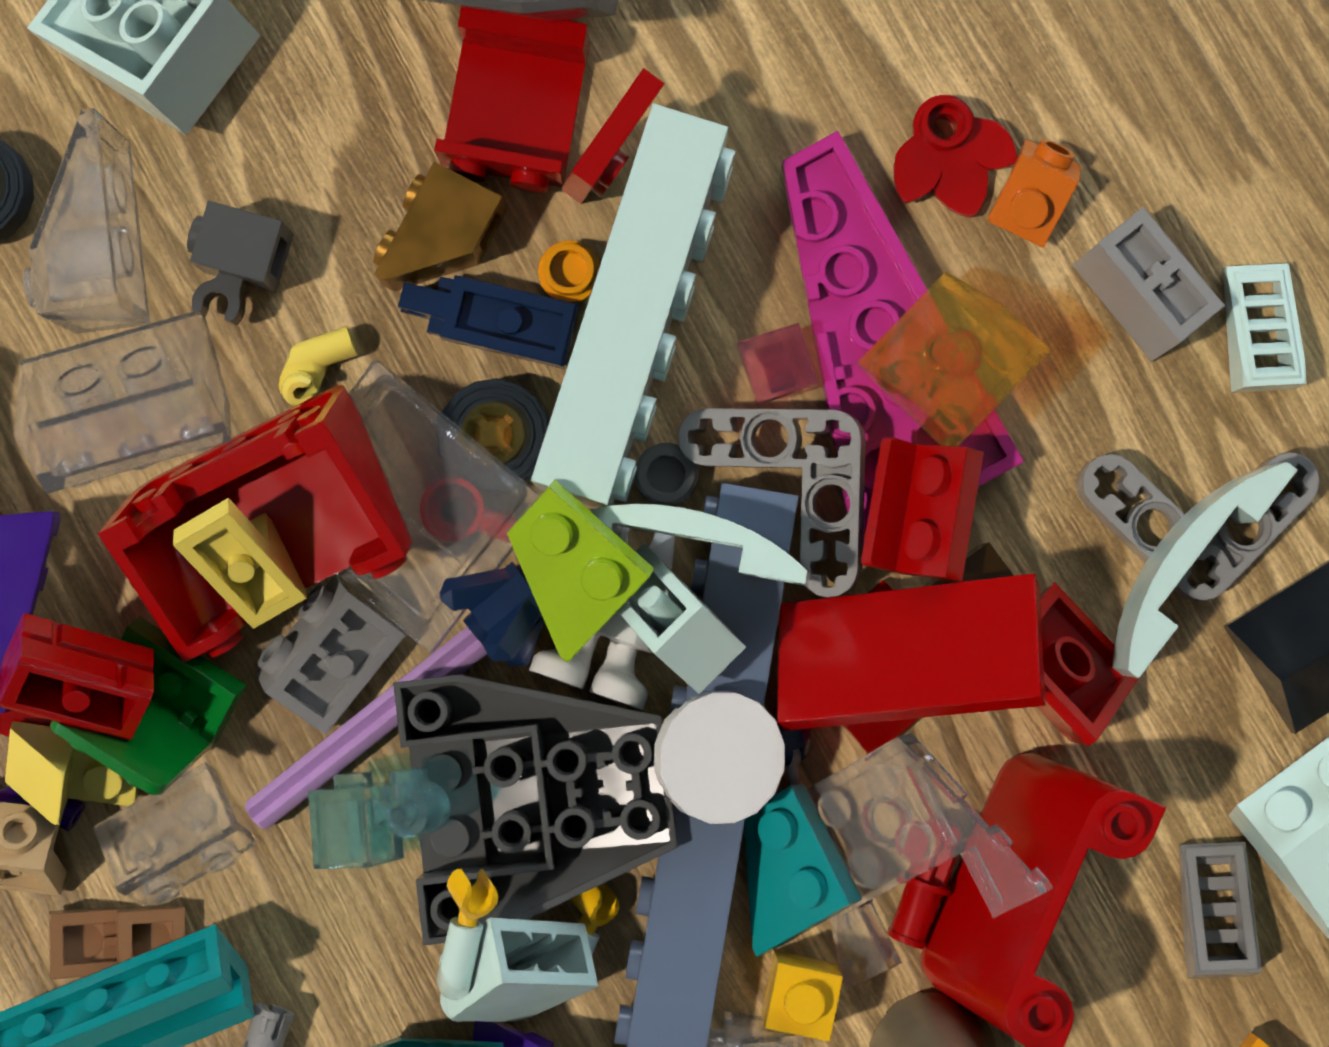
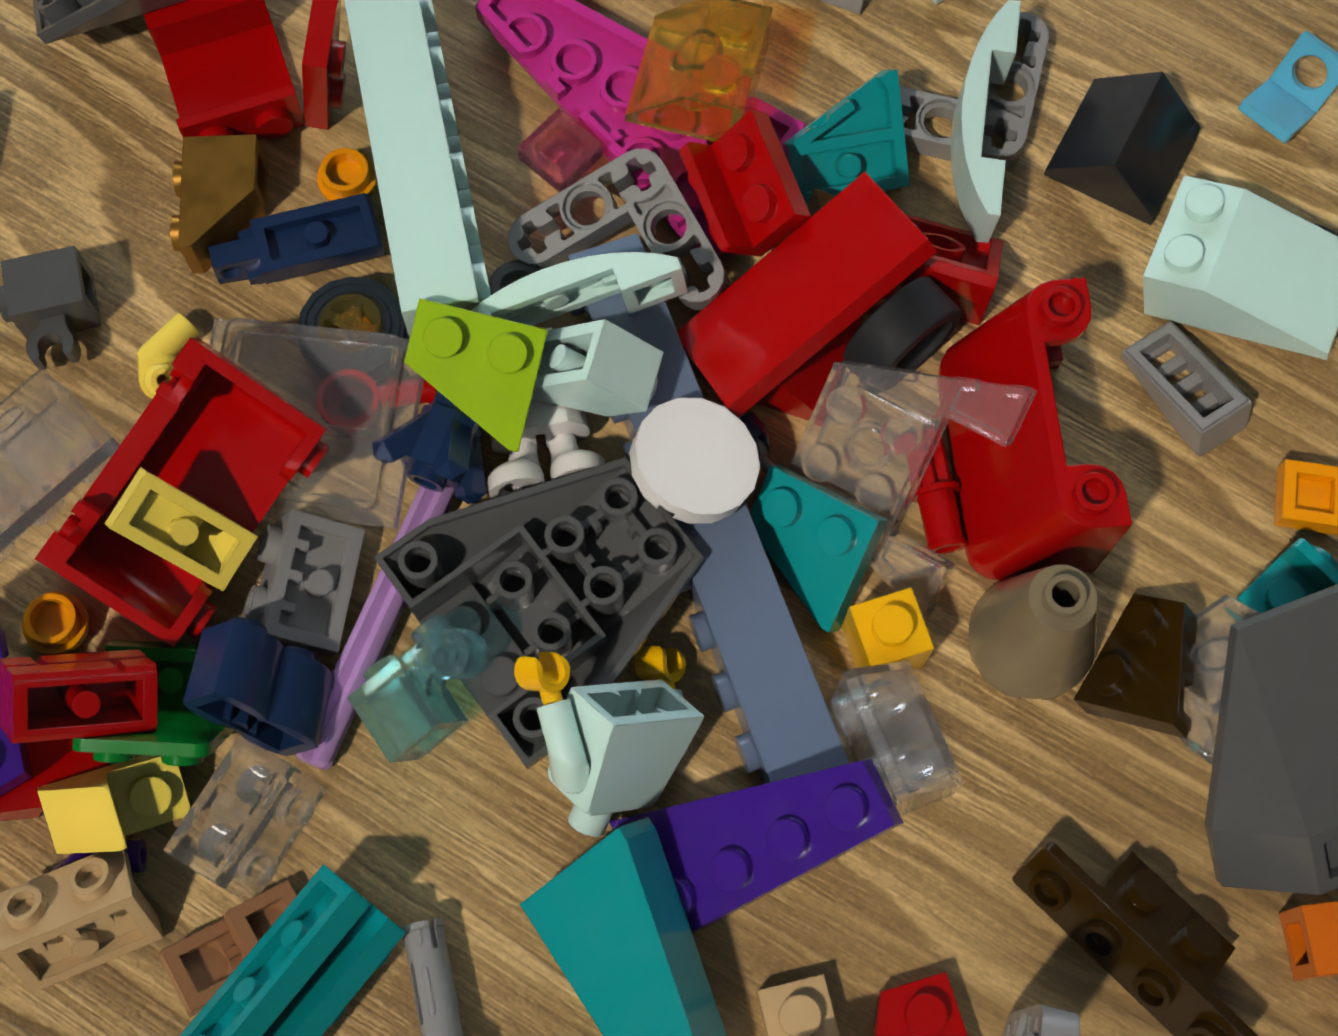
camera: 30 degrees left, 15 degrees down
(95, 570) = (55, 623): none -> light orange plate
(238, 743) = (259, 687): none -> dark blue brick
(983, 736) = (905, 327): none -> black tyre
(1052, 510) = (853, 138): none -> teal wing

